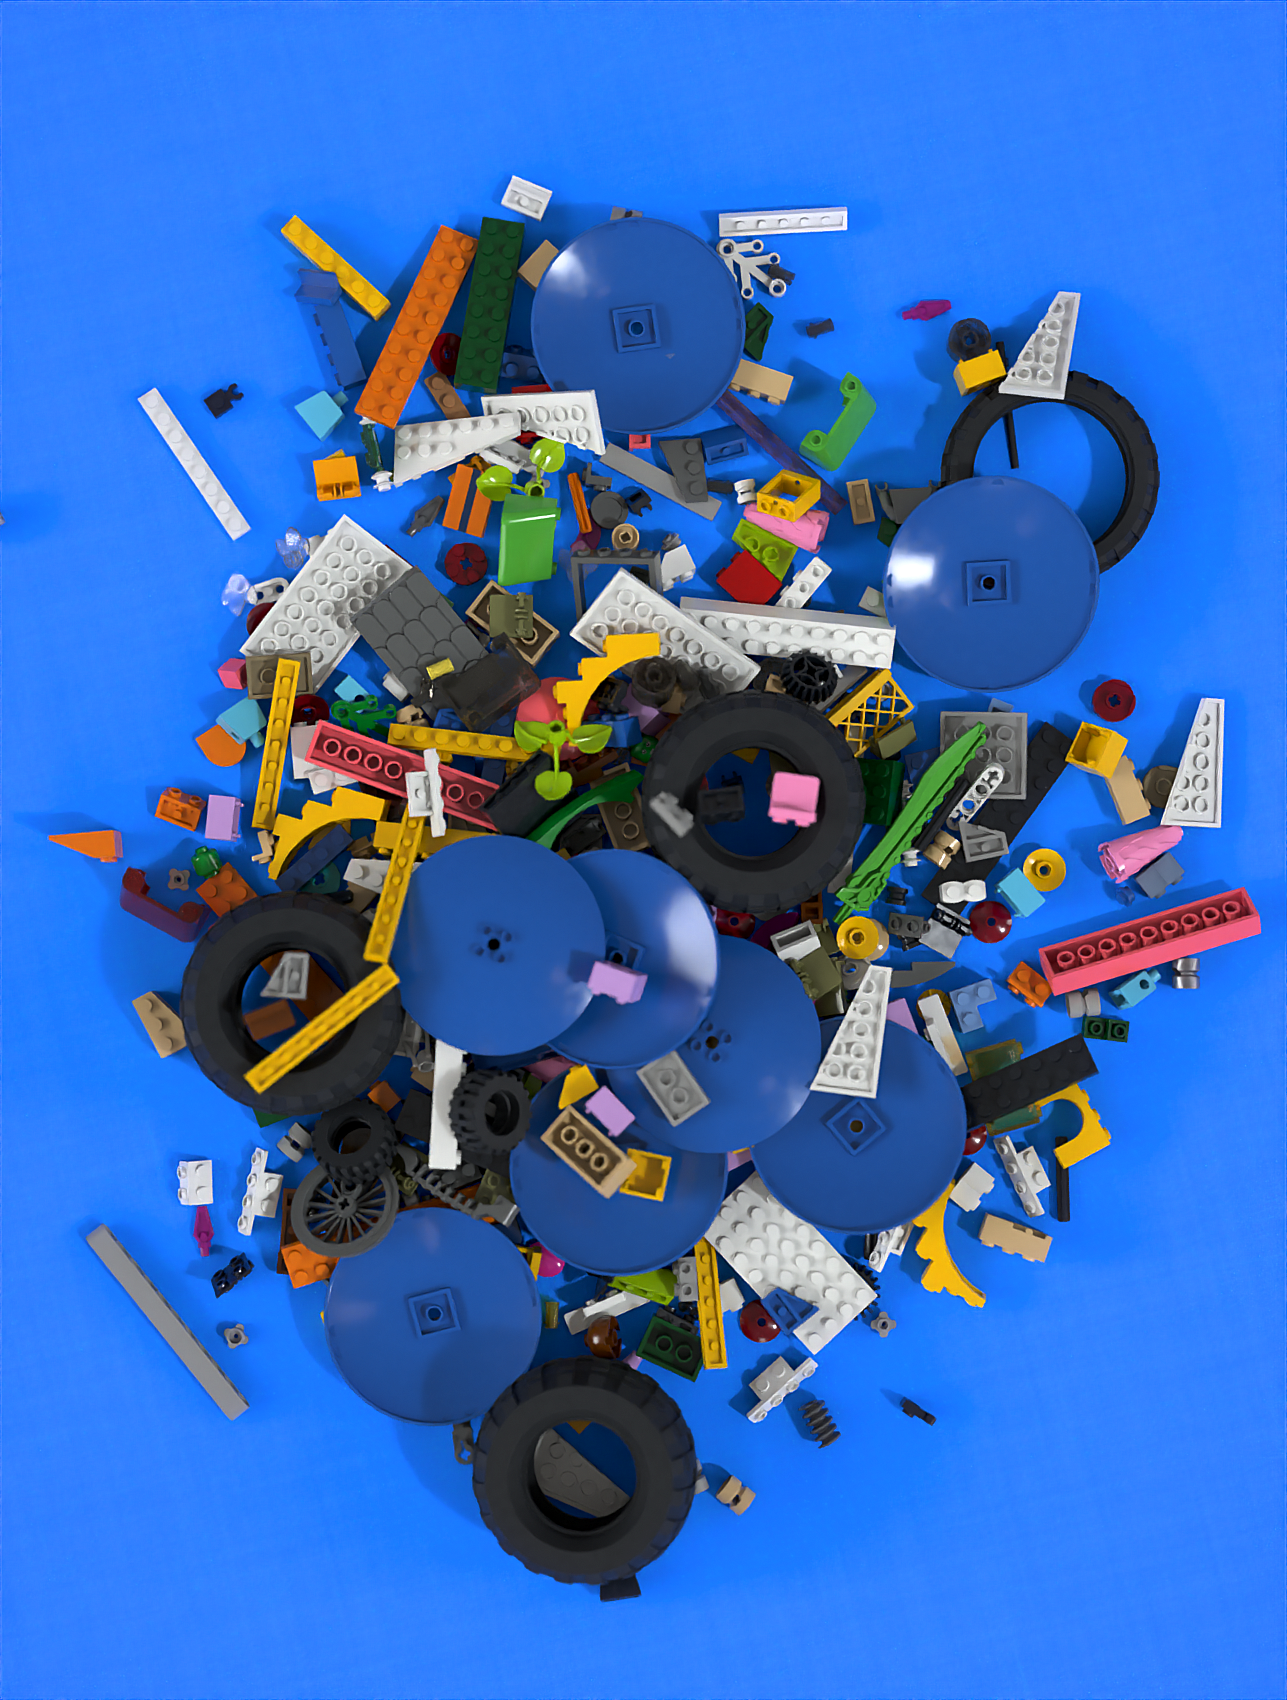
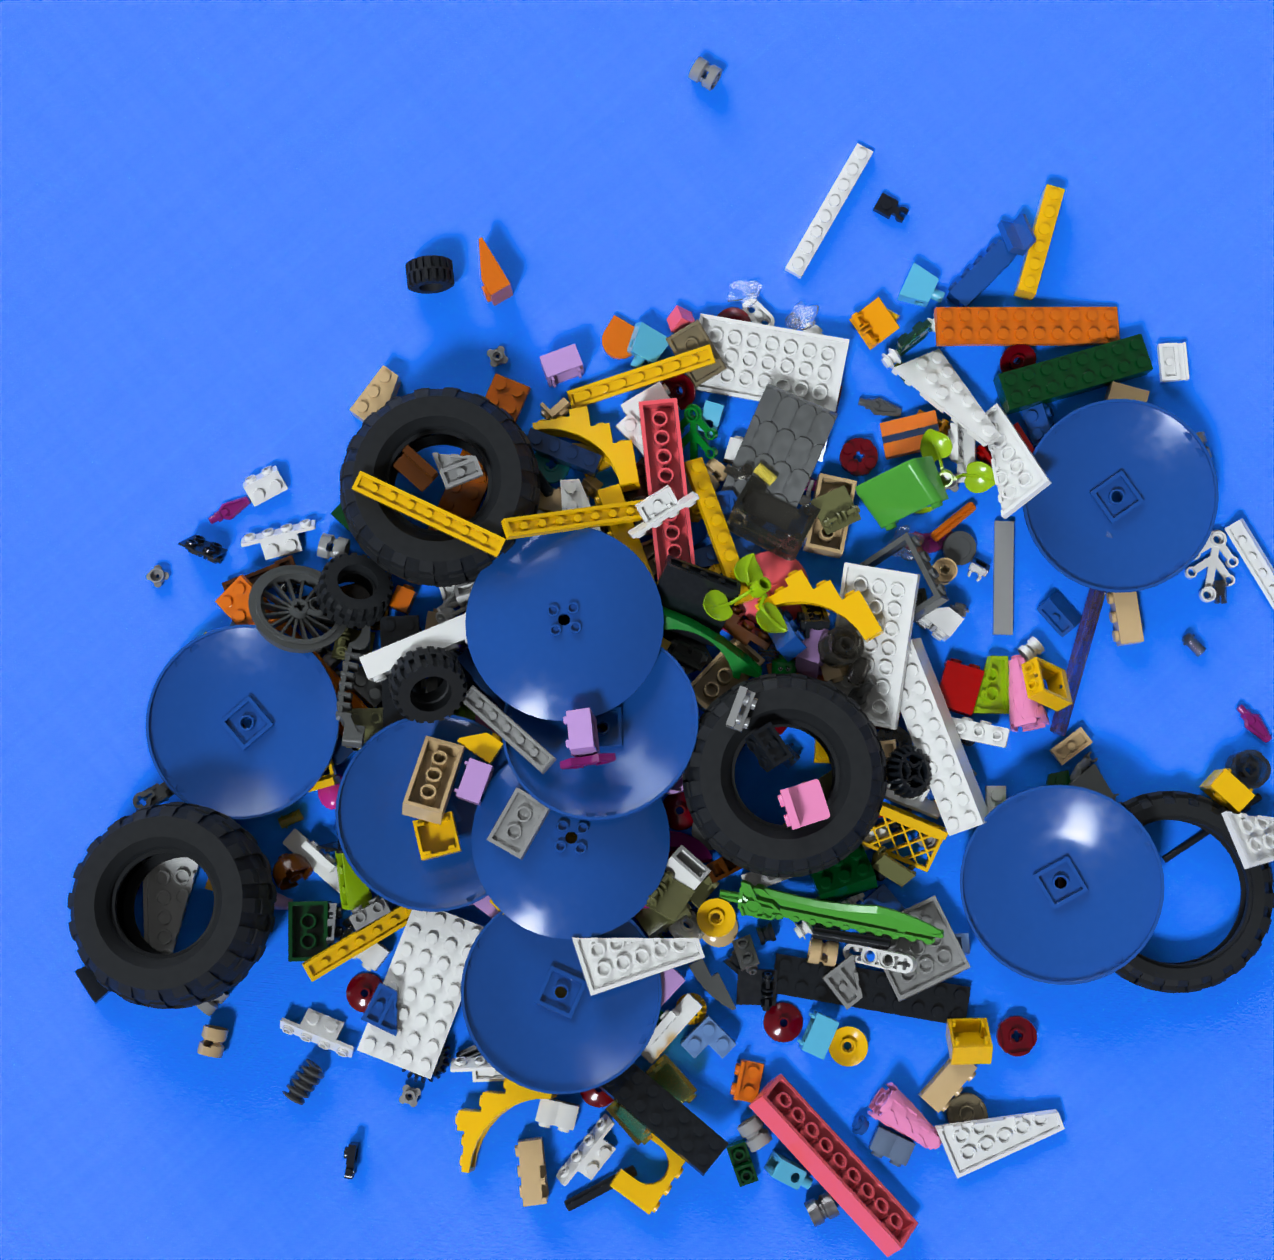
camera: 70 degrees right, 5 degrees down
(59, 907) = (429, 274): none -> black tyre
(167, 1322) = (143, 517): light grey beam -> none
(180, 808) = (553, 330): orange bracket -> none
(181, 925) = (462, 373): windscreen -> none
(206, 862) = (521, 370): green head -> none
(446, 397) = (983, 376): medium nougat plate -> none
(575, 1052) = (508, 730): none -> light grey tile
(599, 483) = (977, 530): dark grey bracket -> none
(639, 442) = (1026, 544): coral panel -> none
(643, 998) = (580, 762): none -> magenta tile
(687, 465) = (1027, 592): dark grey wing -> none
(720, 486) = (1024, 627): clear smoke pin -> none
(758, 323) = (1164, 594): dark green wing -> none
(831, 449) = (1103, 701): bright green windscreen -> none
(968, 891) = (799, 991): white brick -> none

